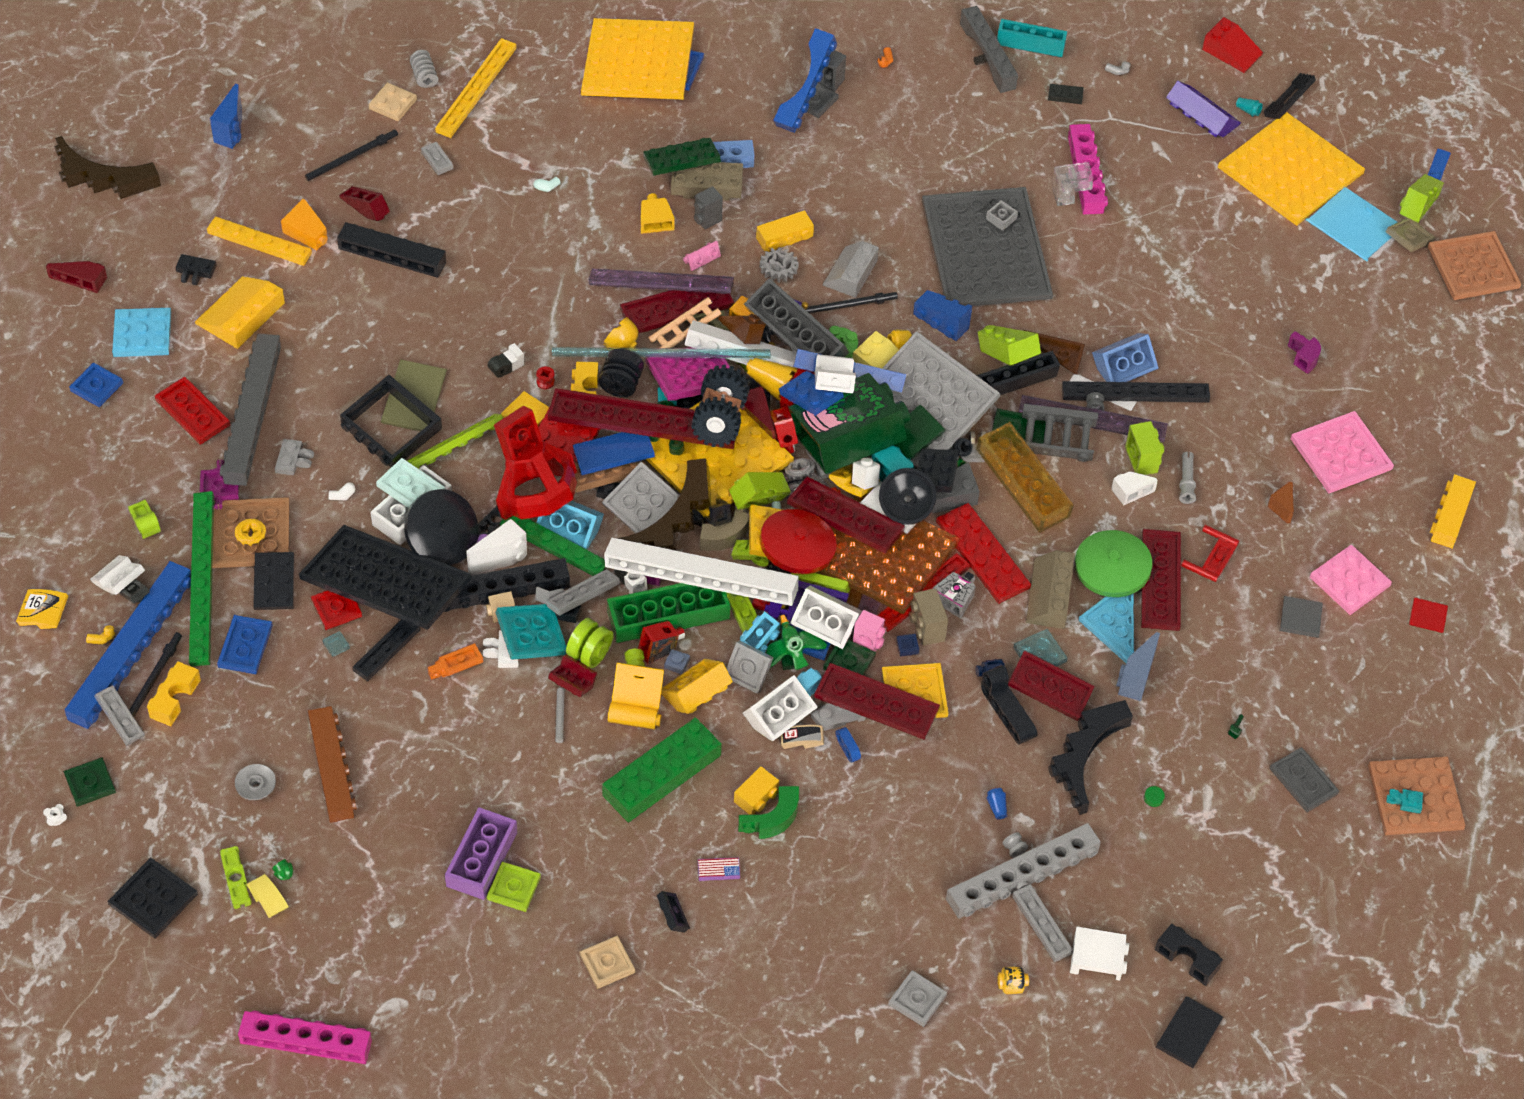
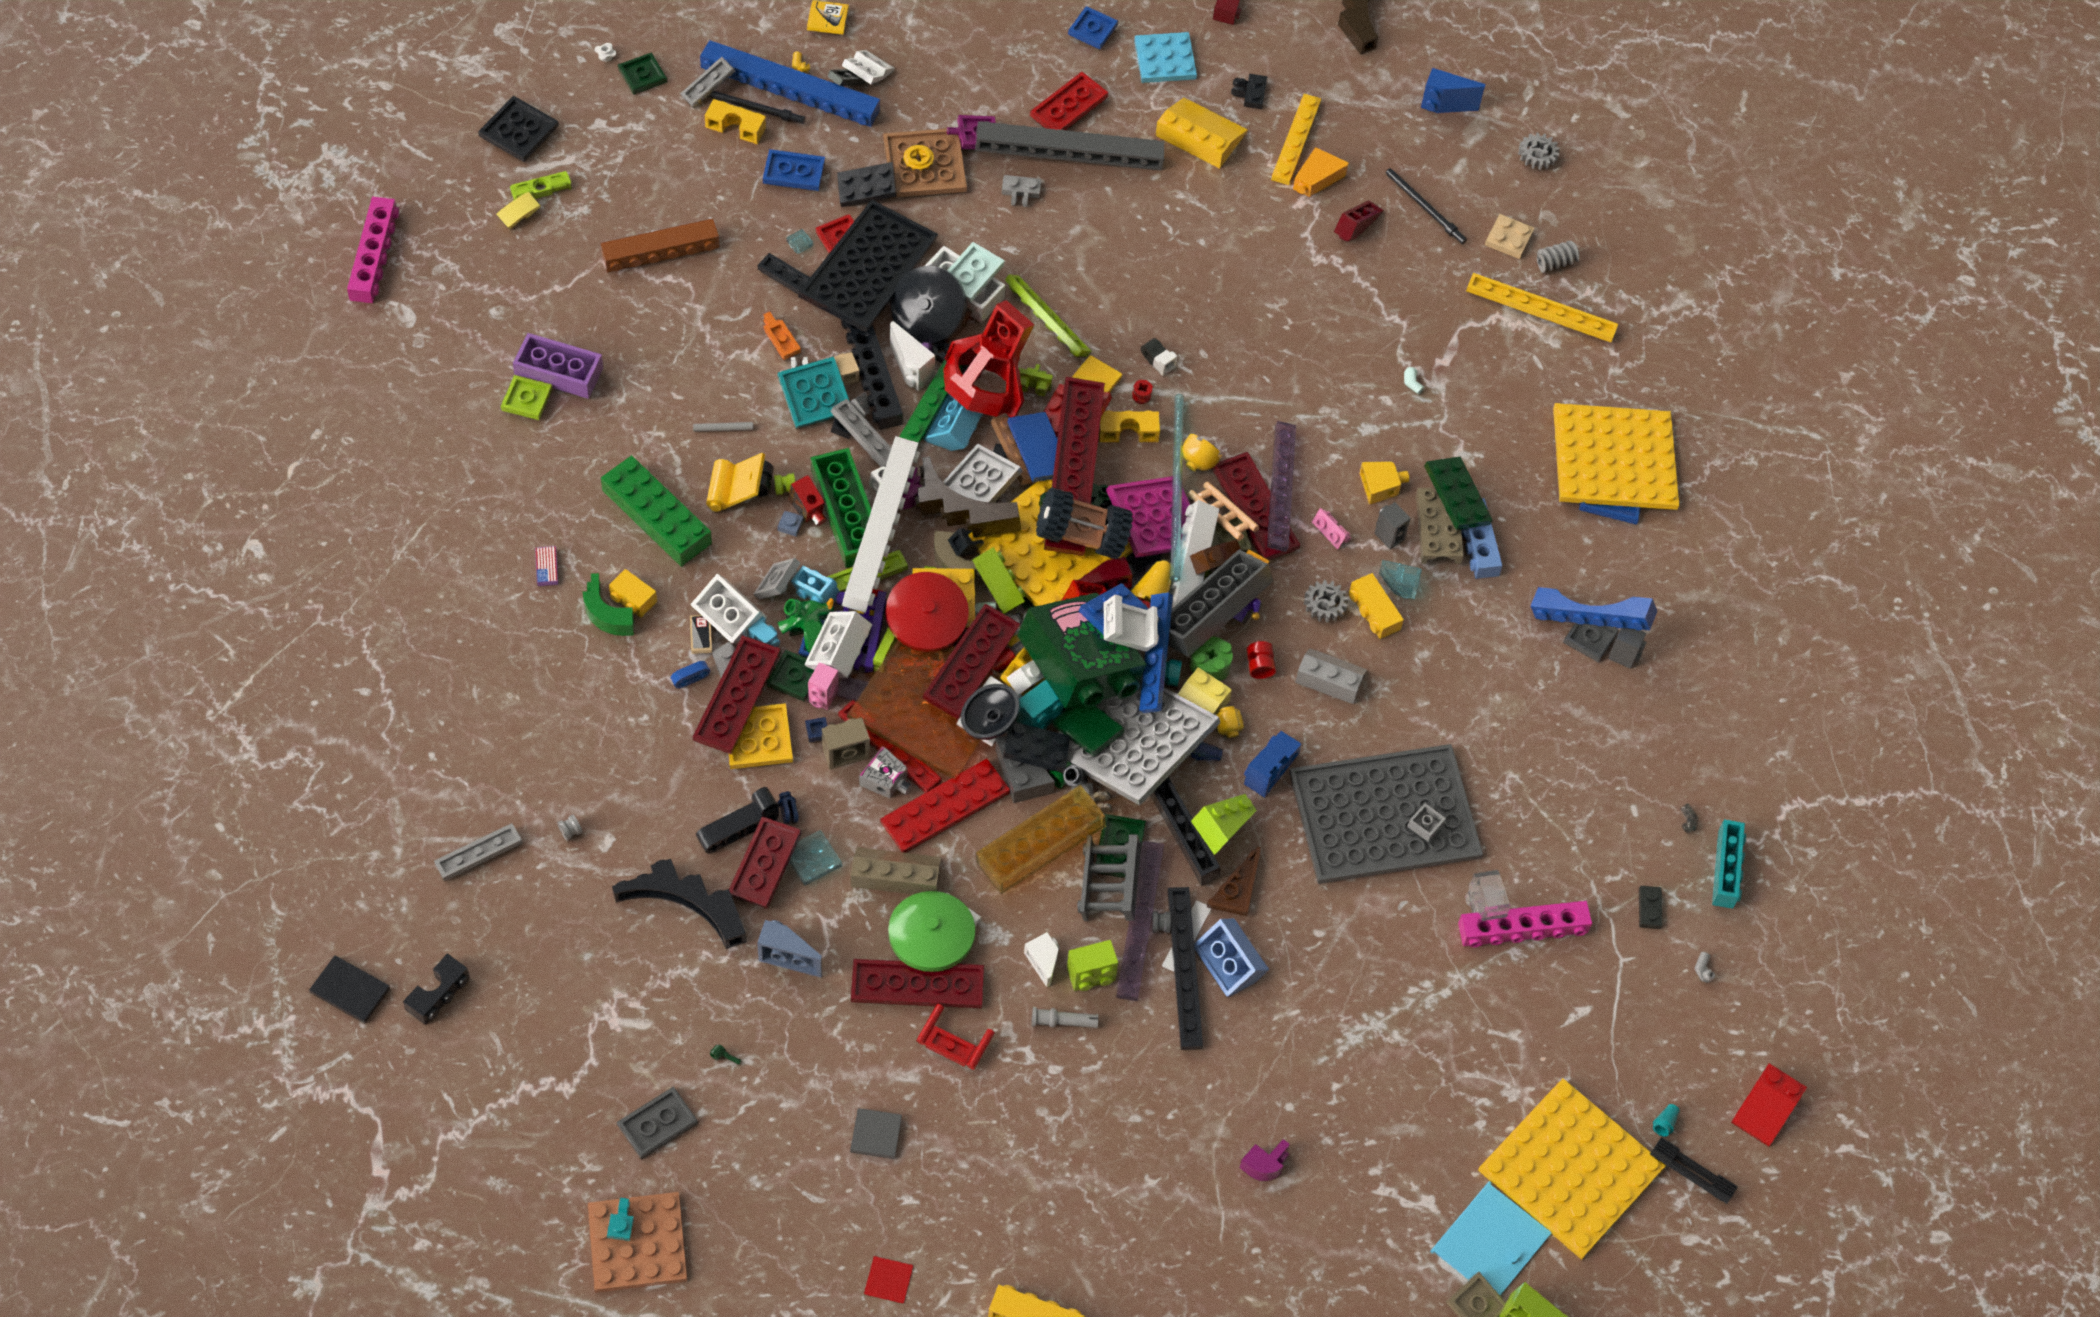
camera: 85 degrees right, 5 degrees up
(144, 519) = (931, 81): lime plate -> none
(201, 579) = (865, 127): green plate -> none
(253, 775) = (638, 184): light grey dish -> none
(283, 870) = (545, 219): green plate -> none
(301, 68) = (1538, 151): none -> light grey gear
(344, 493) = (980, 233): white arm -> none
(391, 249) = (1296, 248): black brick -> none
(392, 386) = (1068, 298): black window -> none
(424, 383) = (1119, 285): olive container -> none
(437, 158) = (1432, 279): light grey plate -> none
(573, 676) = (762, 432): dark red bracket -> none
(589, 643) = (798, 438): lime wheel -> none
(607, 962) = (443, 476): tan plate -> none
(621, 372) = (1146, 452): black wheel -> none
(673, 911) = (495, 526): black plate -> none
(697, 685) = (757, 537): yellow slope -> none
(758, 211) = (1401, 578): none -> clear light blue slope
(846, 313) = (1261, 660): none -> red wheel
(878, 298) = (1293, 701): black bar -> none
(887, 59) = (1667, 711): orange arm -> none
(917, 998) = (395, 737): light grey plate -> none
(997, 802) = (622, 812): blue cone -> none
(1002, 70) = (1678, 825): dark grey arch -> none
(1012, 980) = (412, 822): yellow head -> none
(1046, 853) = (570, 897): light grey brick -> none
(1099, 952) = (438, 902): white panel -> none
(1113, 624) = (856, 934): medium azure tile -> none
(1154, 796) = (633, 967): green tile -> none
(1202, 109) = (1650, 1063): slope -> none
(1282, 502) = (1035, 1121): dark orange slope -> none
(1341, 452) = (1117, 1194): bright pink plate -> none
(1350, 579) = (932, 1192): bright pink plate -> none

